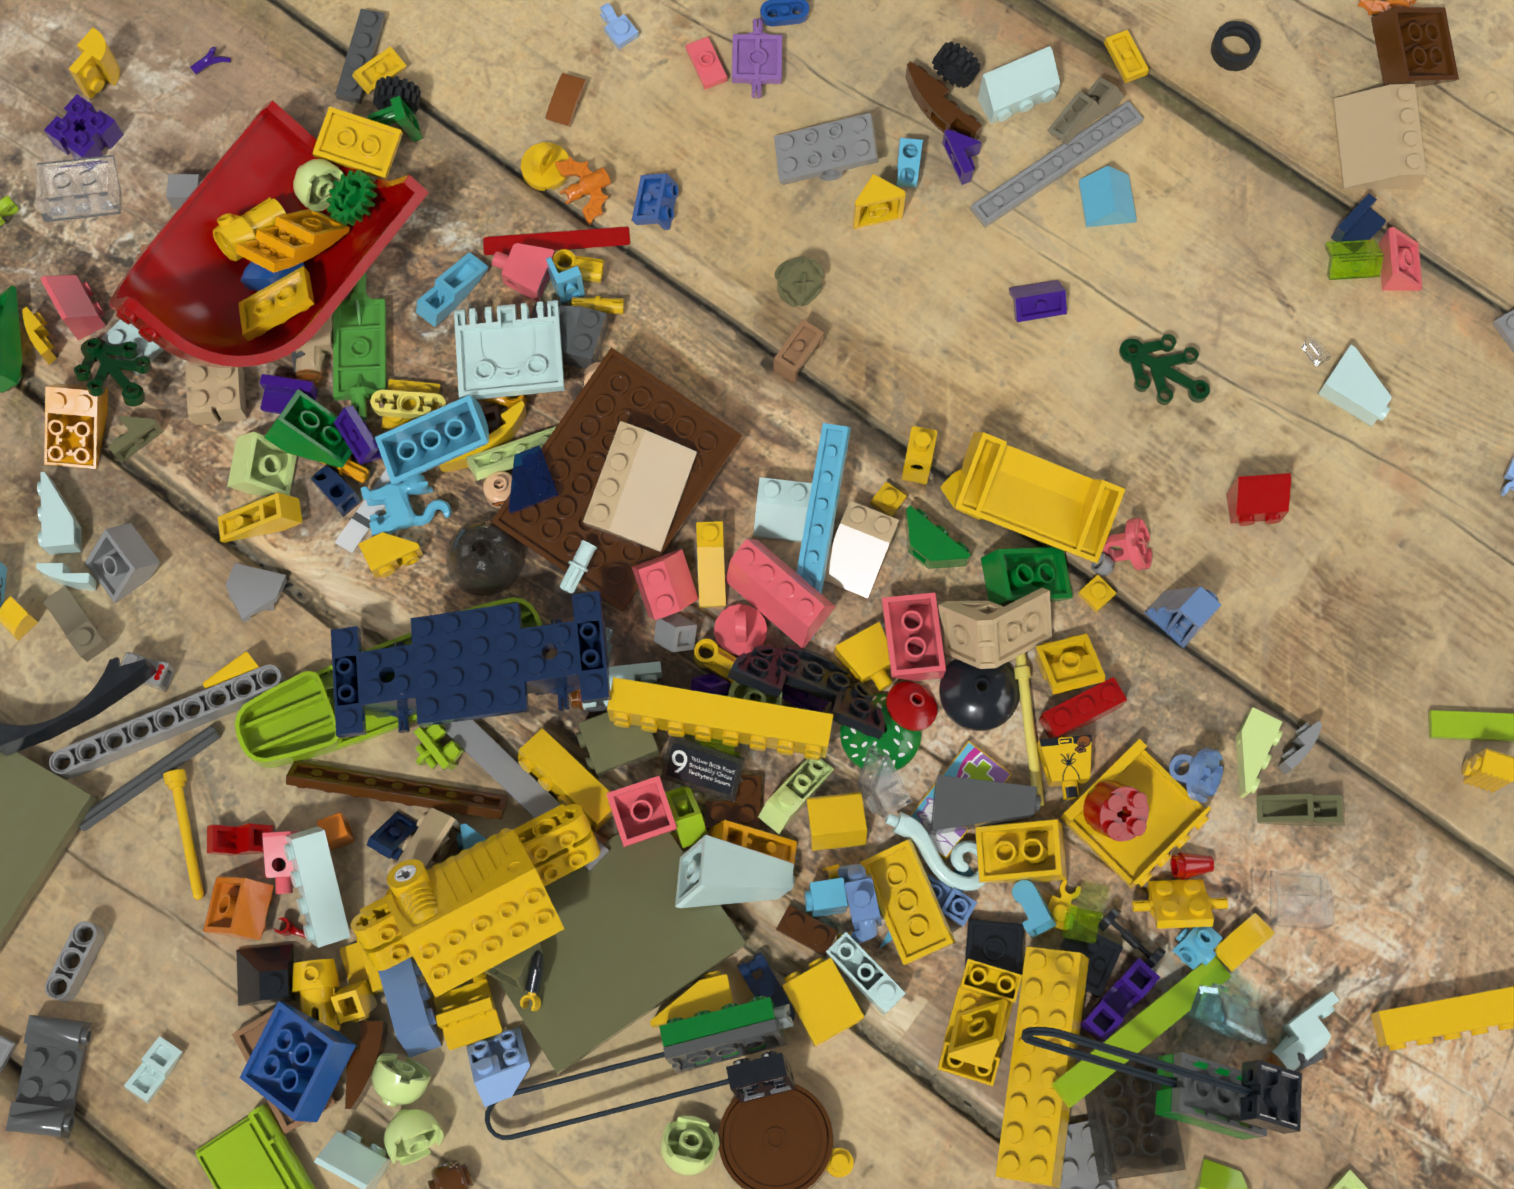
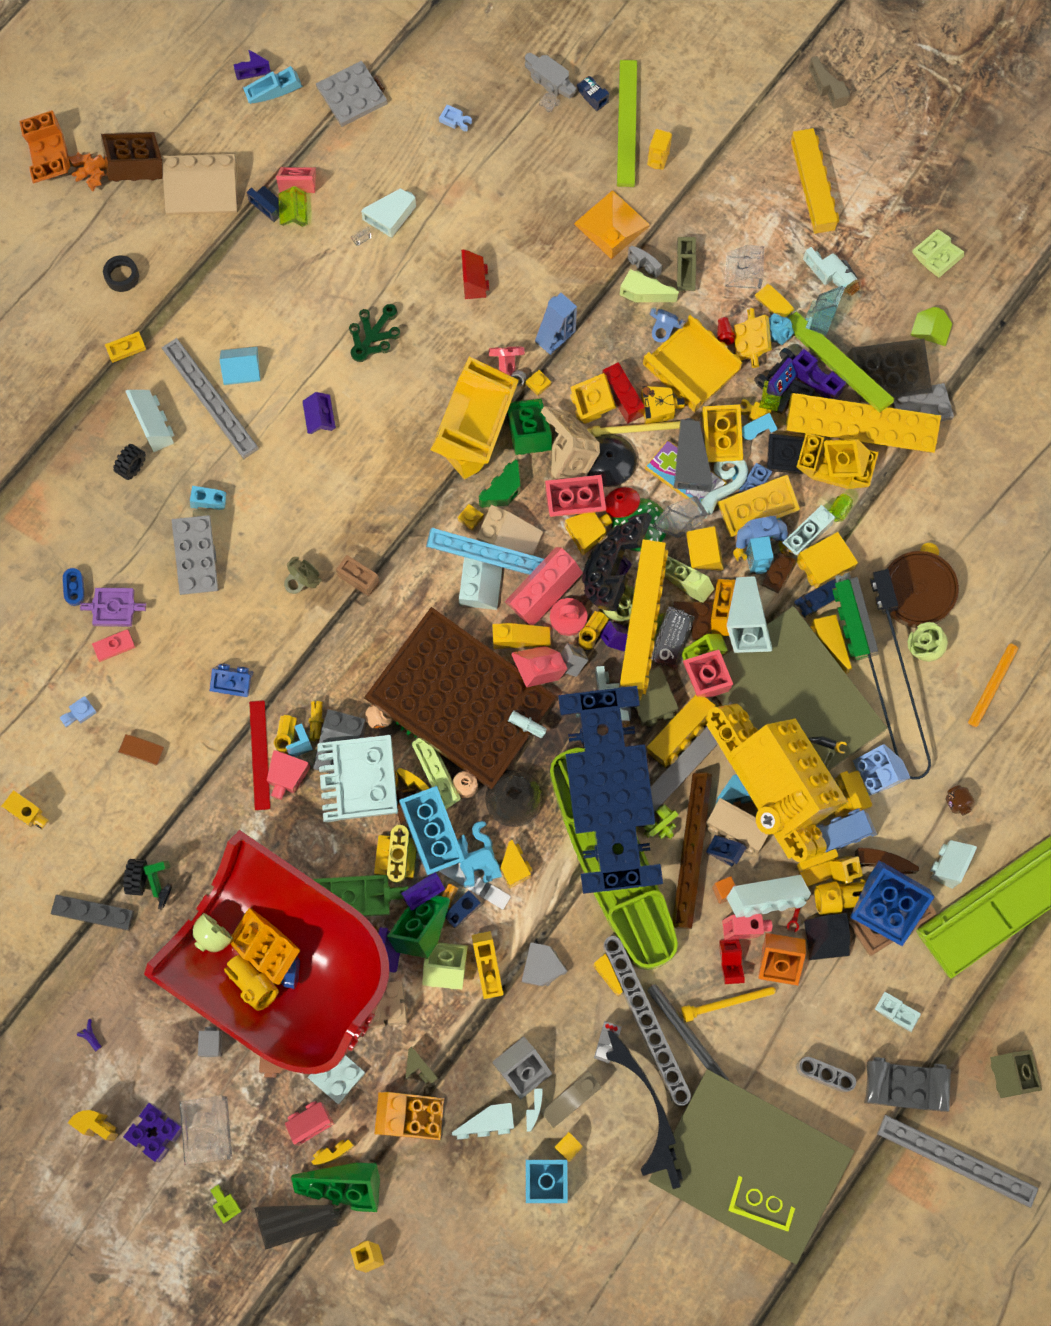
camera: 90 degrees left, 0 degrees up
(98, 350) = (365, 1085): dark green plant -> none
(276, 303) = (317, 956): yellow plate -> none
(351, 200) = (219, 908): green gear -> none
(357, 143) = (181, 900): yellow plate -> none
(383, 65) = (109, 894): yellow plate -> none
(399, 1081) = (896, 835): yellowish green cylinder -> none
(410, 1135) = (931, 826): yellowish green cylinder -> none
(451, 289) = (300, 829): medium azure slope -> none
(530, 480) = (464, 756): clear blue wing -> none
(539, 166) = (197, 763): yellow tile -> none
(589, 184) = (215, 729): orange animal -> none
(640, 486) = (470, 679): tan slope -> none
(878, 203) = (240, 518): yellow slope -> none
(907, 1027) = (841, 507): none -> clear neon green brick
(919, 452) = (438, 493): yellow torso -> none
(932, 99) = (155, 481): reddish brown slope -> none
(960, 150) = (197, 464): dark purple slope -> none
(1084, 109) = (170, 375): dark tan slope -> none
(1110, 943) = (782, 378): none -> slope
(1116, 810) = (694, 371): red brick -> none
(1201, 1090) = (878, 315): piece -> none
(1362, 704) = (612, 224): none -> light orange slope

